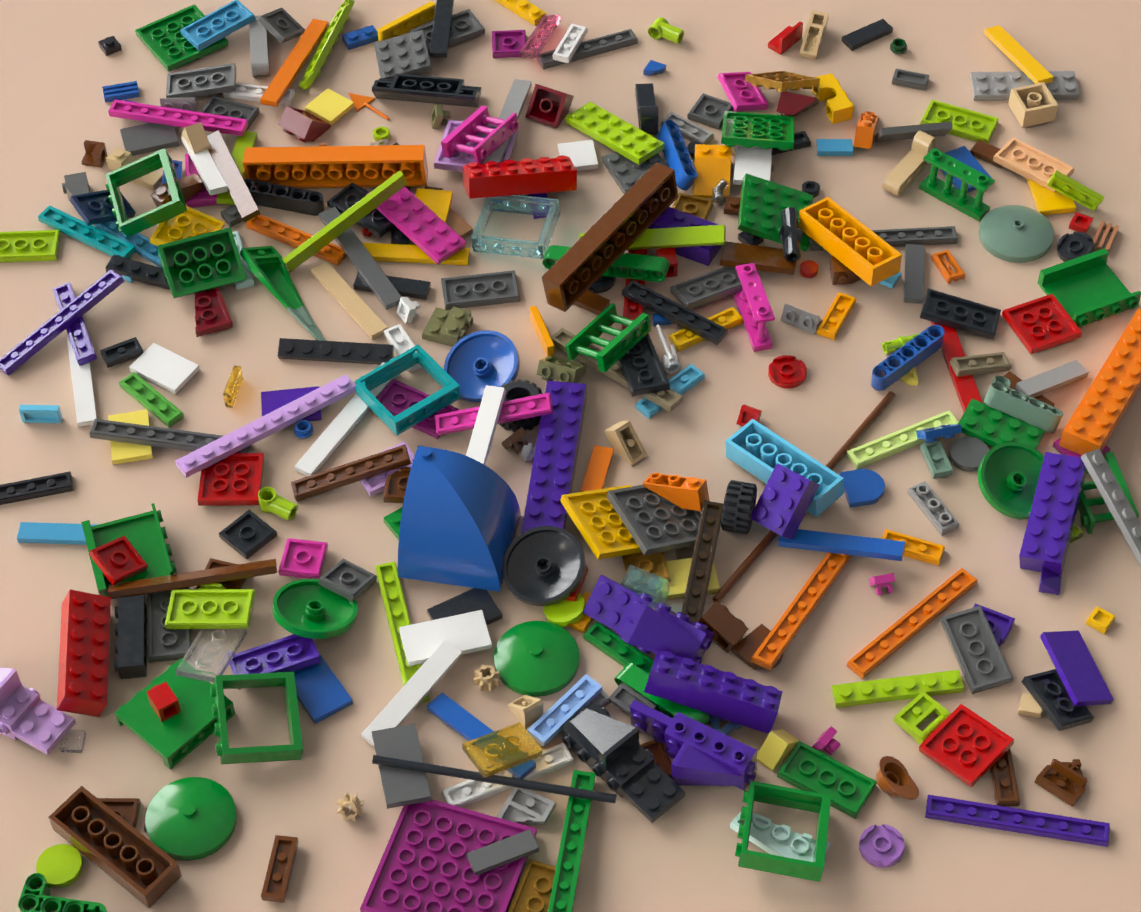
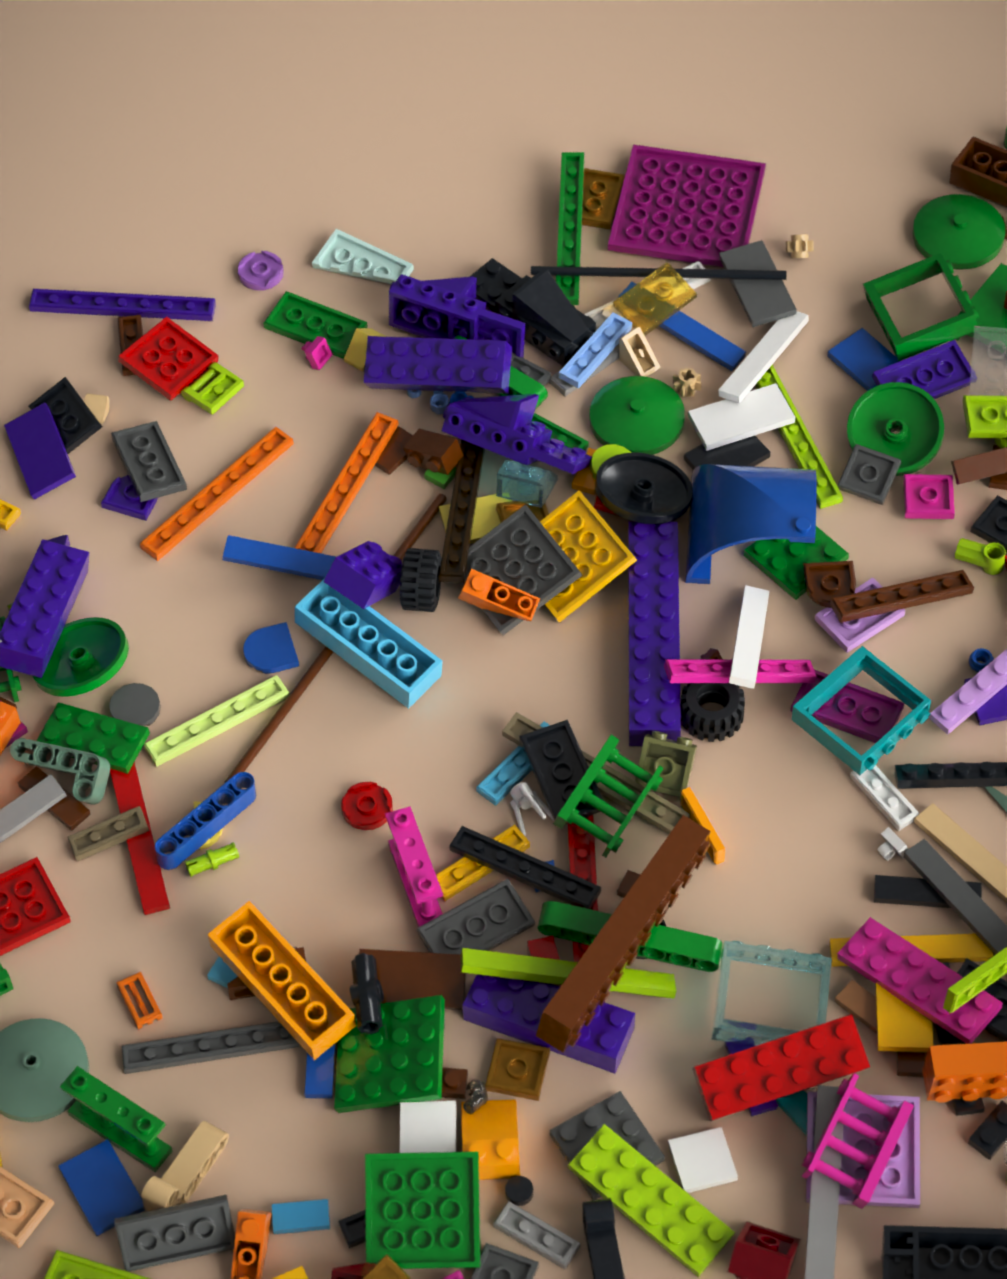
camera: 175 degrees right, 5 degrees up
(279, 869) = (854, 193): reddish brown plate -> none
(336, 433) = (935, 673): white tile -> none
(439, 116) = (936, 1212): olive tile -> none
(448, 326) = (832, 830): olive plate -> none
(480, 290) = (802, 898): dark grey tile -> none
(481, 361) = (772, 755): blue dish -> none
(502, 852) = (637, 215): dark grey tile -> none
(527, 808) = (622, 260): light grey wing -> none
(528, 452) = (689, 650): light grey plate -> none
(597, 468) = (600, 640): orange tile -> none
(625, 442) = (570, 674): tan slope -> none
(677, 154) = (555, 1168): blue beam -> none
(748, 413) = (415, 724): red tile -> none
(788, 798) = (356, 217): green window -> none
(800, 318) = (358, 890): light grey hinge -> none
(808, 269) = (339, 975): red tile -> none
(811, 188) = (338, 1127): black tile -> none
(836, 316) = (300, 900): light orange tile -> none
(882, 580) = (251, 527): dark pink tile -> none
(895, 780) = (242, 313): dark orange piece -> none
(896, 688) = (238, 419): lime plate -> none
(914, 273) = (188, 982): dark grey tile -> none
(917, 548) = (214, 580): light orange tile -> none
(933, 508) = (185, 632): light grey tile -> none
(936, 459) = (177, 690): sand green plate -> none
(946, 431) = (171, 715): blue plate -> none
(960, 314) = (129, 909): black tile -> none
(985, 152) = (61, 1229): reddish brown tile -> none
(1063, 780) = (70, 344): reddish brown slope -> none

